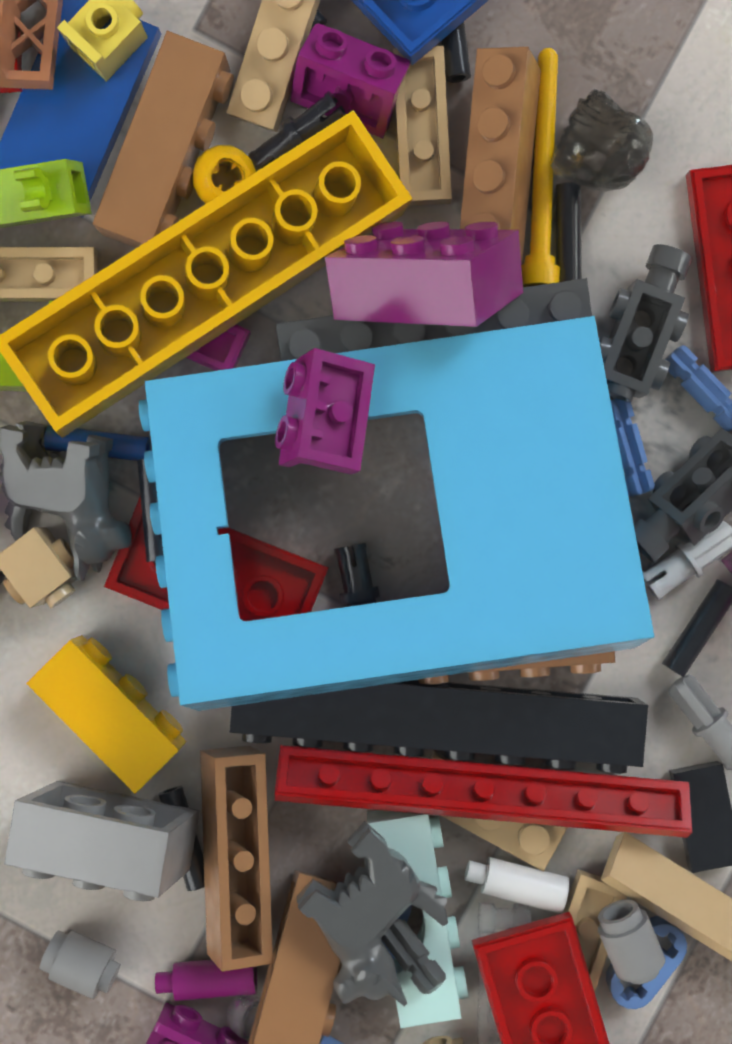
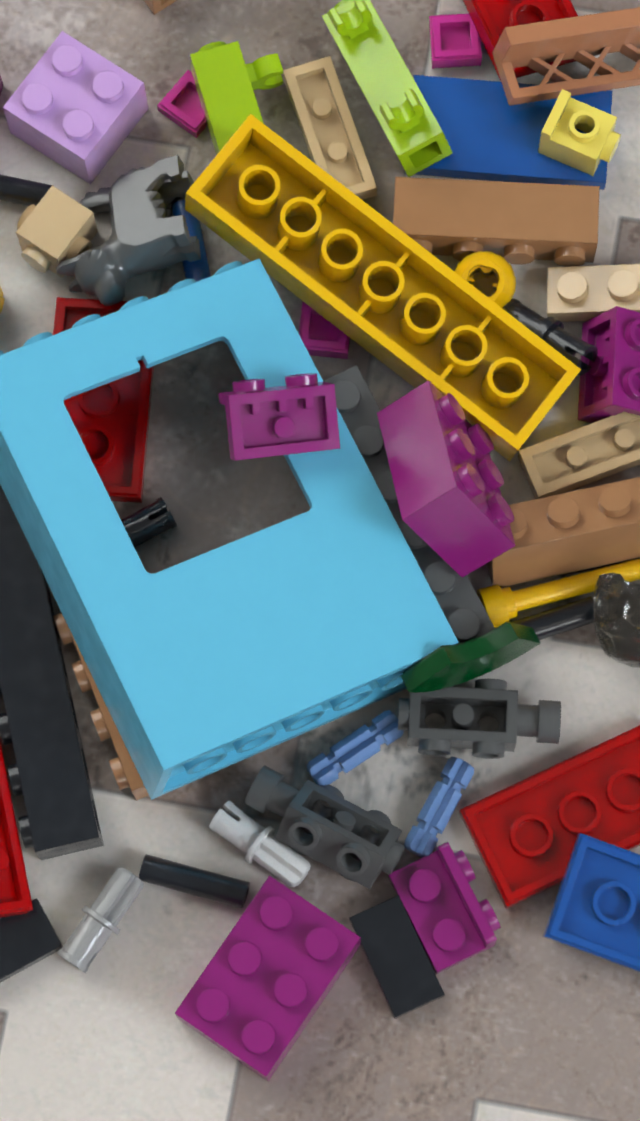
camera: 75 degrees right, 15 degrees down
(605, 310) = (465, 661): none -> dark green tile

